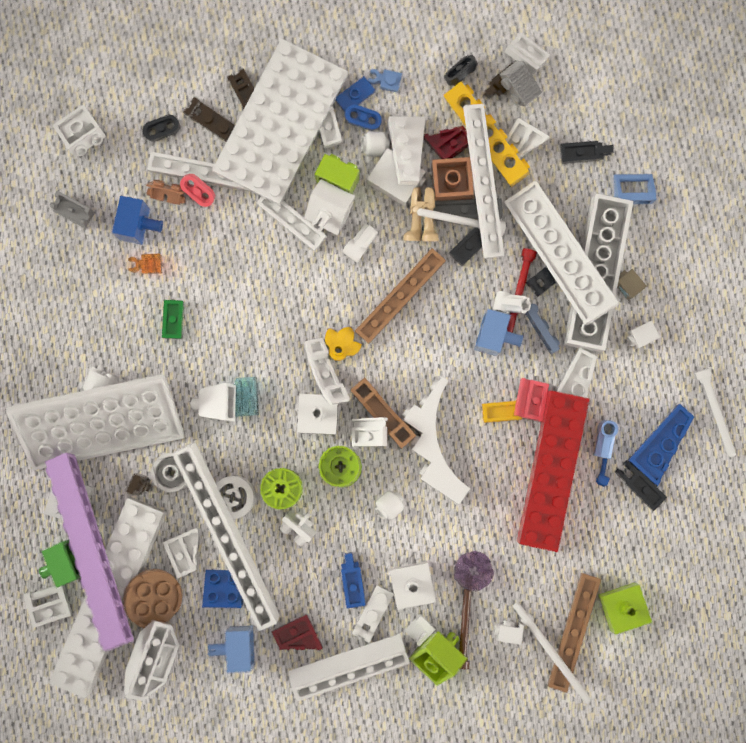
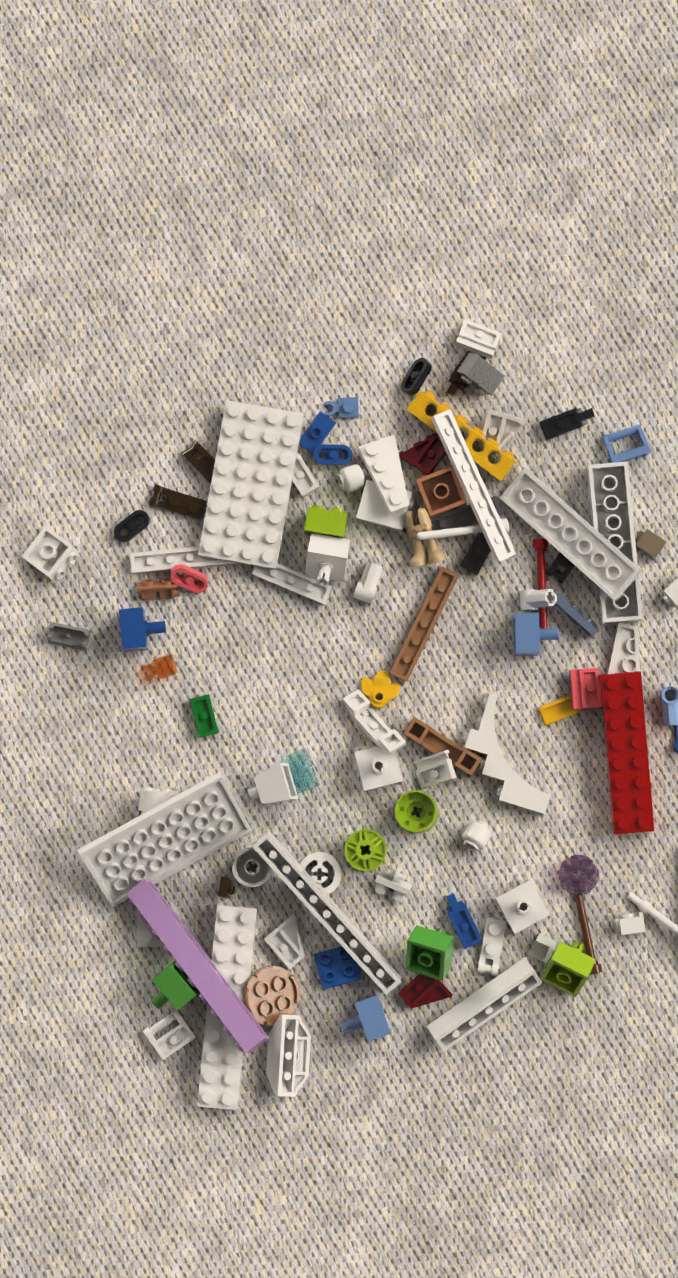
camera: 10 degrees left, 0 degrees up
(312, 603) = (429, 952): none -> bright green brick

